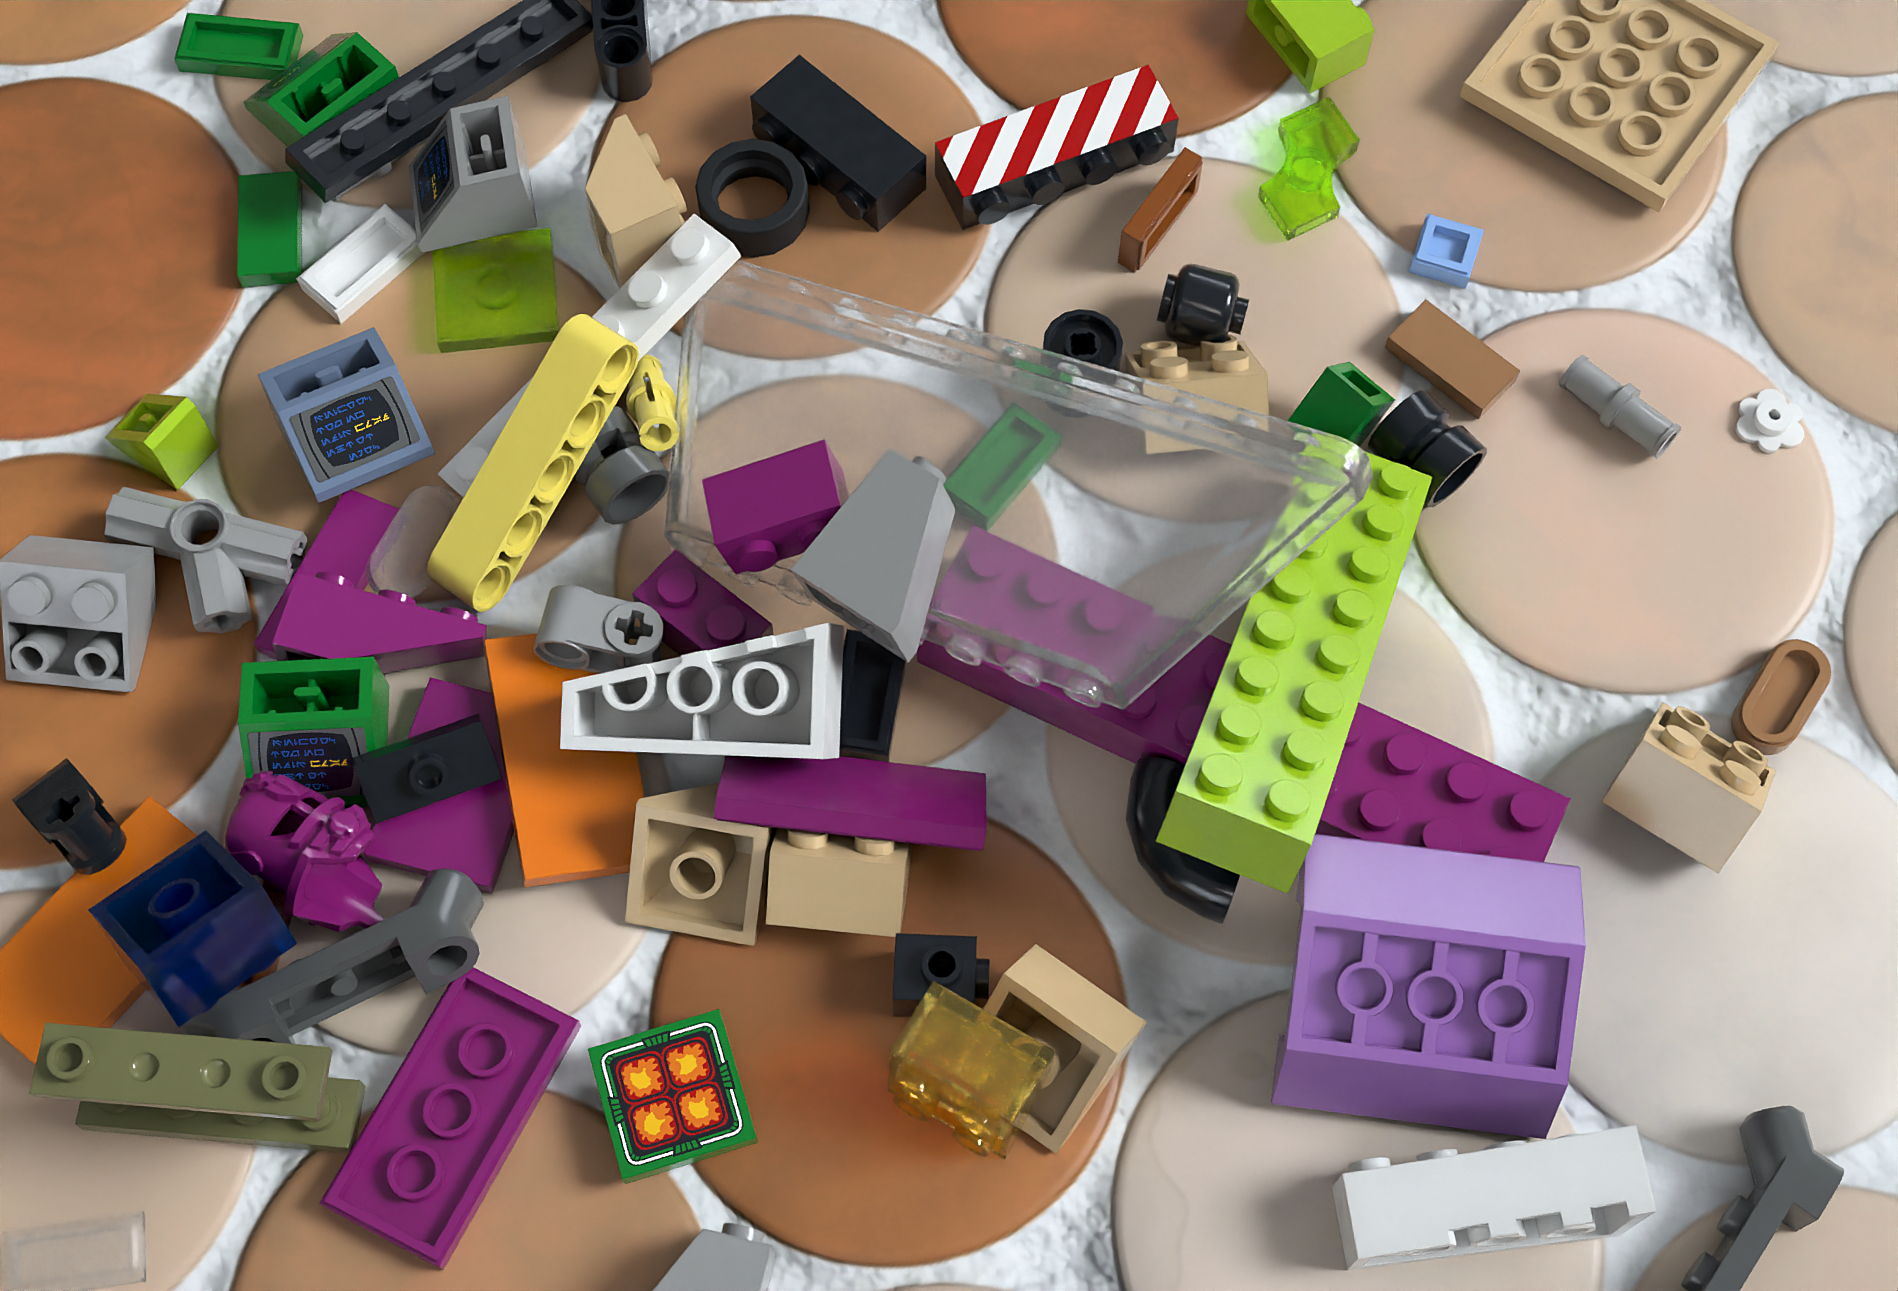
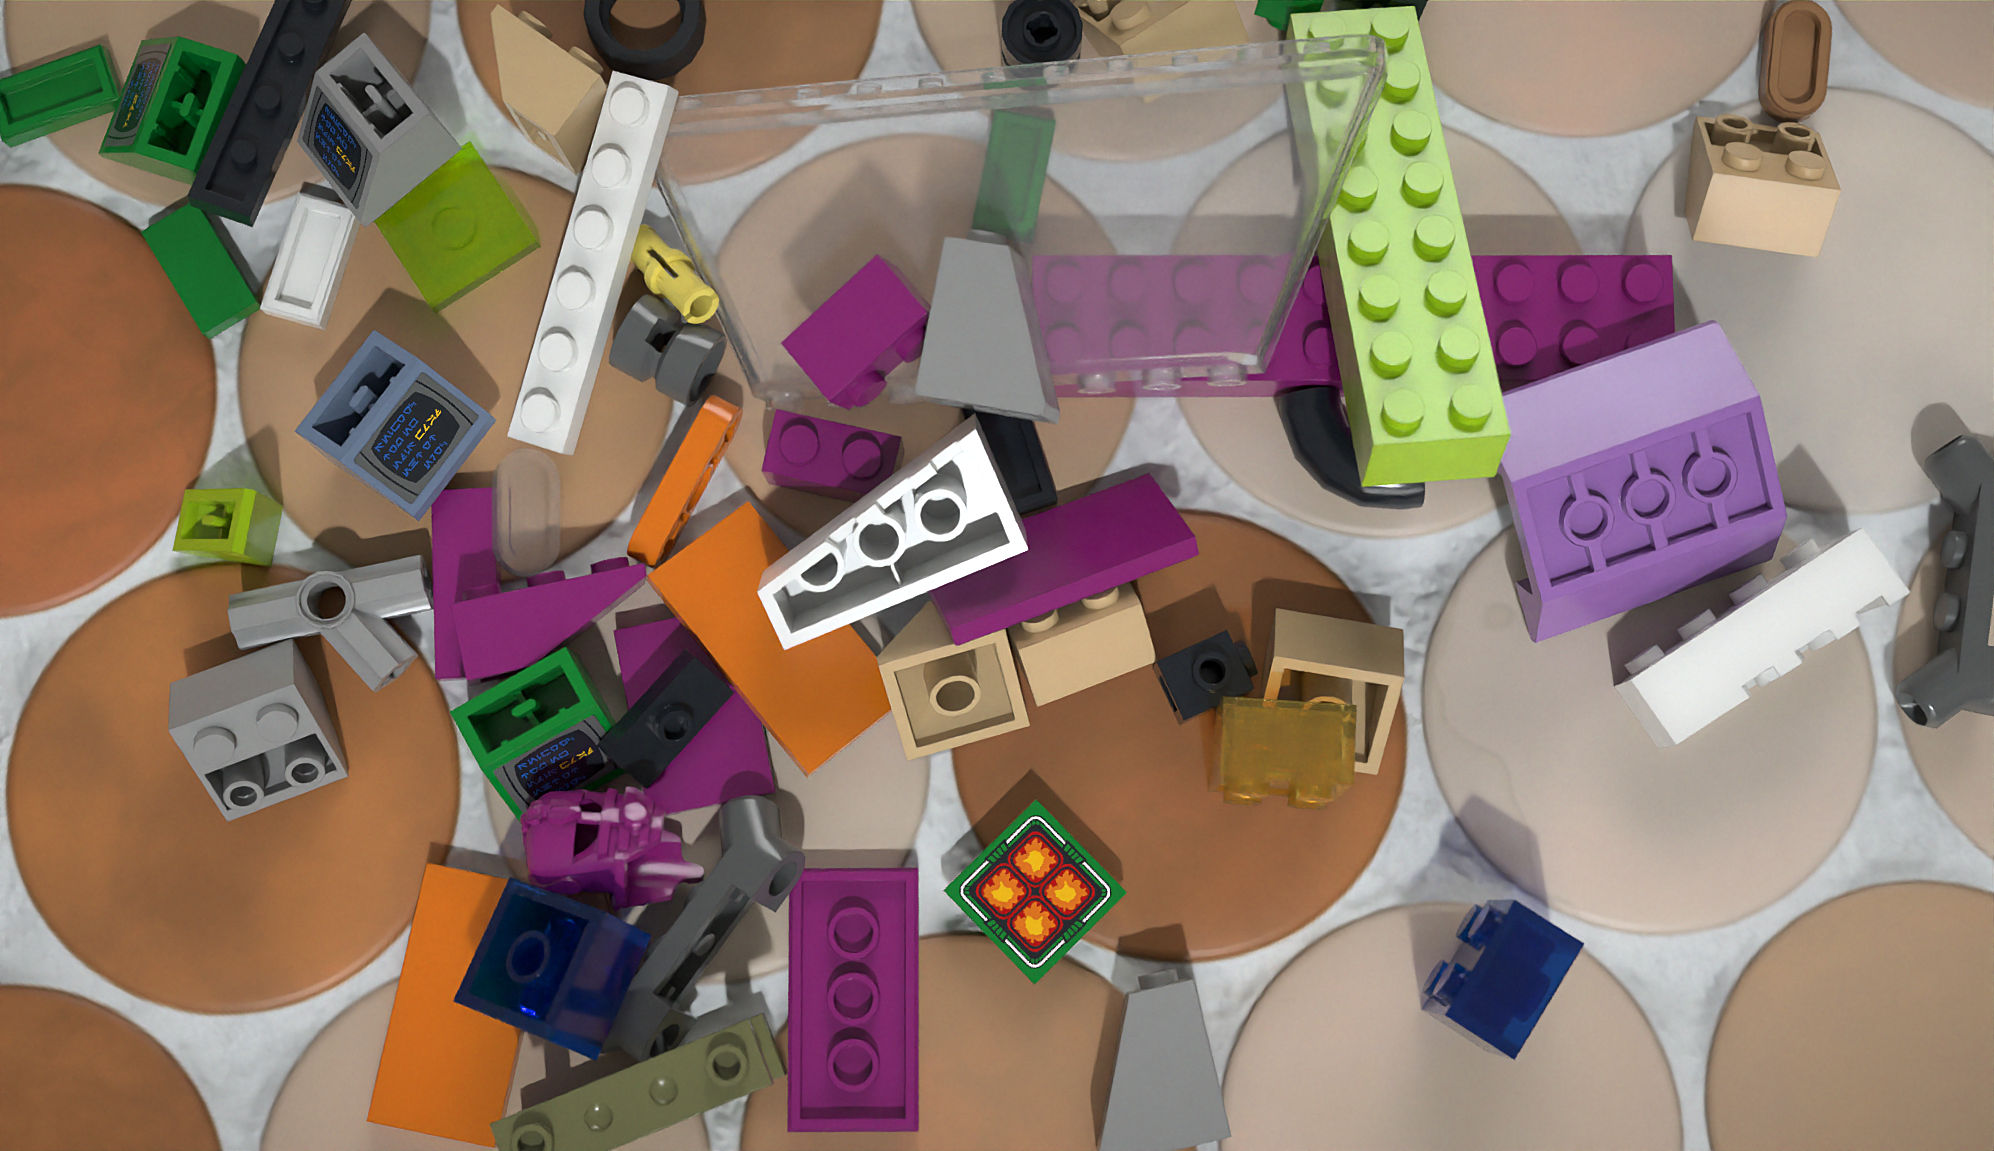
camera: 25 degrees left, 15 degrees up
(73, 818) = (373, 919): black piece -> none
(533, 462) = (601, 388): light yellow beam -> none
(589, 564) = (684, 482): none -> orange beam
(594, 631) = (740, 523): light grey piece -> none

